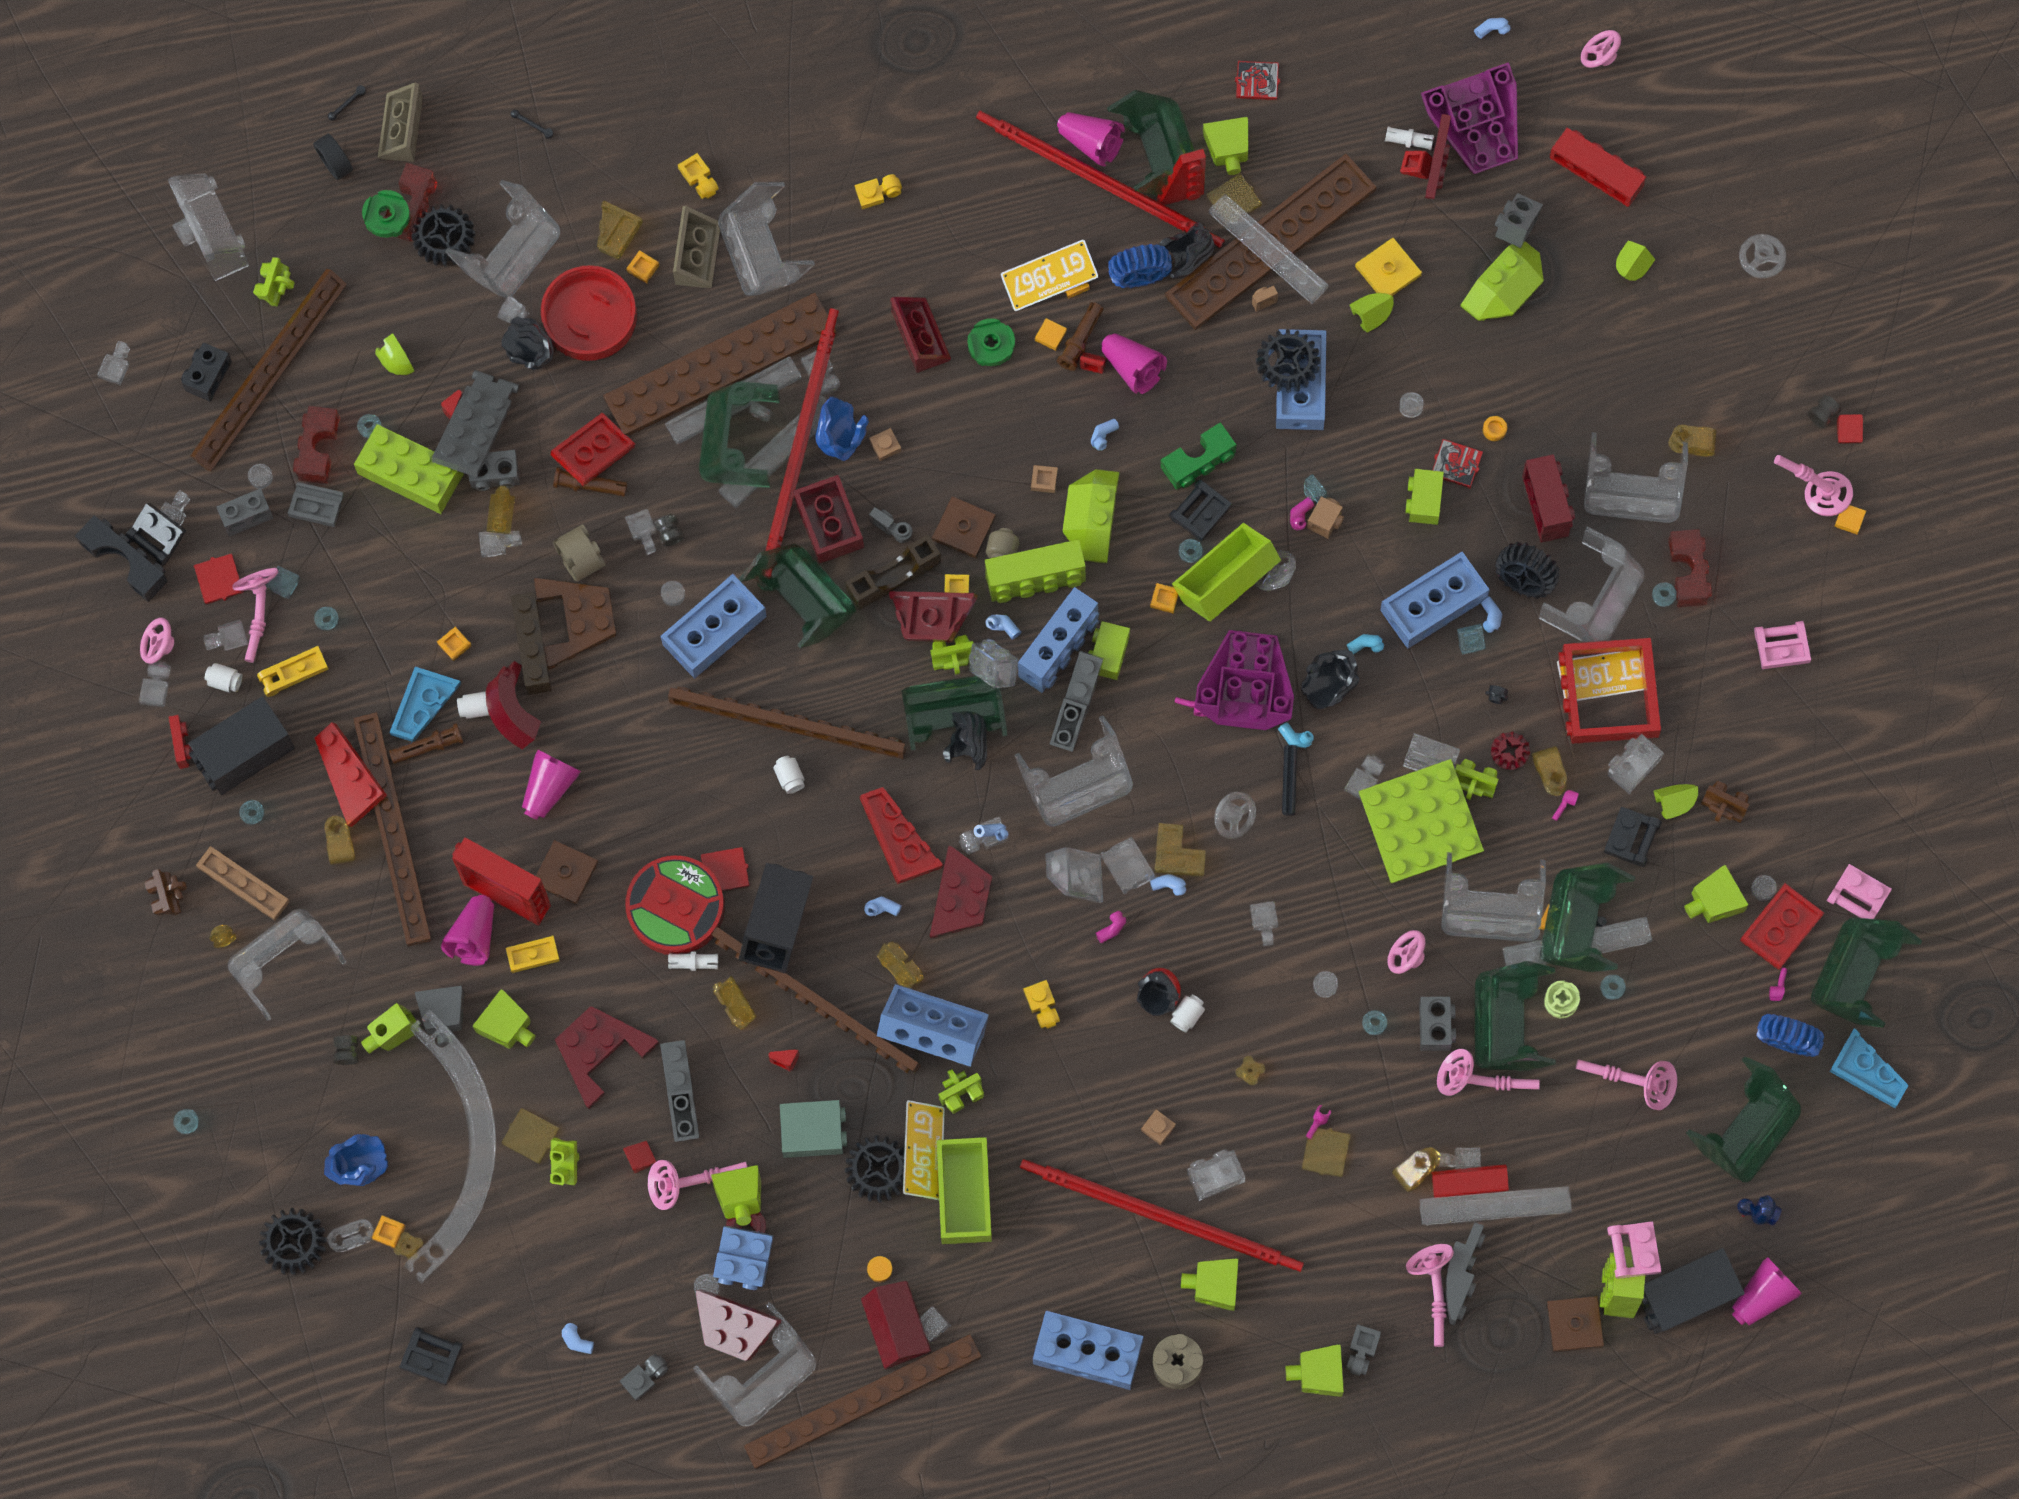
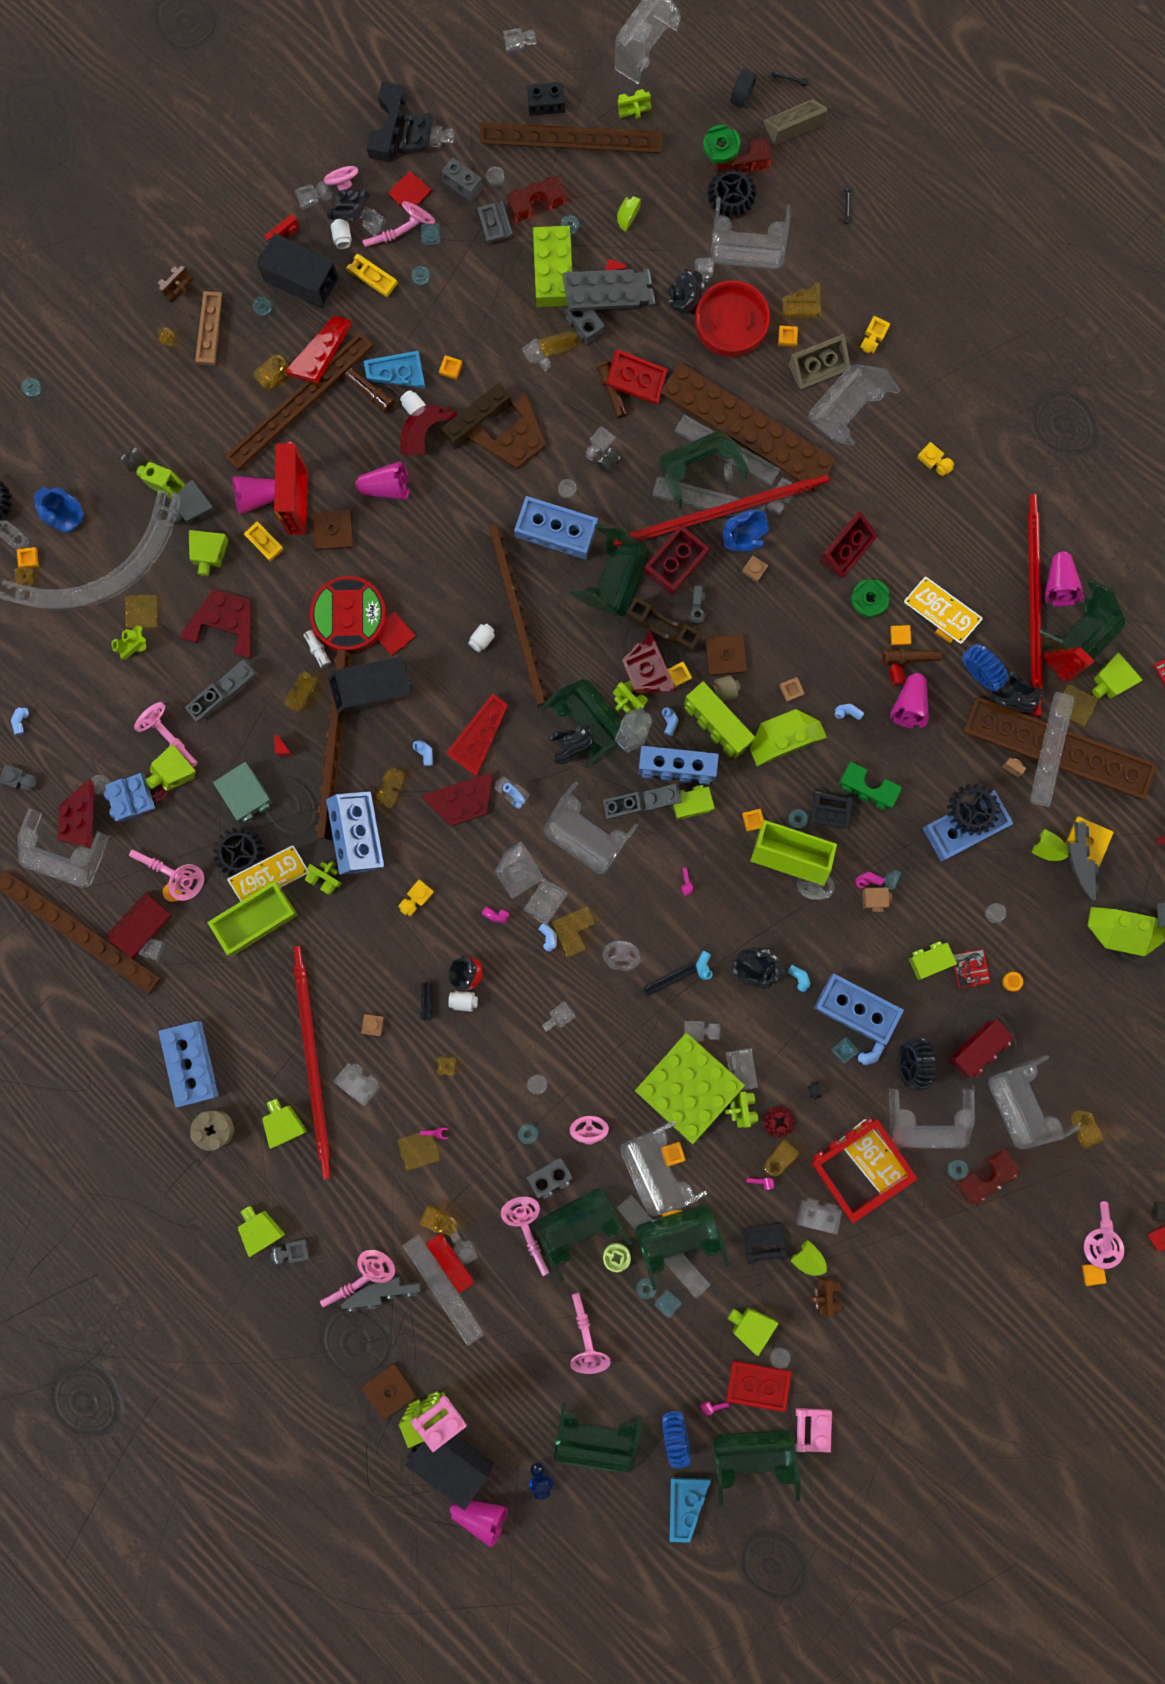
camera: 60 degrees right, 10 degrees up
(191, 645) = (349, 200): none -> black plate
(247, 962) = (196, 380): clear windscreen -> none
(579, 554) = (555, 409): dark tan brick -> none
(639, 1156) = (164, 690): red slope -> none
(871, 1249) = (178, 874): none -> bright pink dish
(1165, 1054) = (426, 1001): none -> black axle
(1246, 683) = (723, 910): magenta wedge -> none
(1414, 289) = (1083, 868): none -> dark grey slope
(1482, 880) = (672, 1154): none -> light orange tile
(1641, 972) = (667, 1303): none -> clear light blue plate
(1782, 652) = (964, 1280): bright pink plate -> none

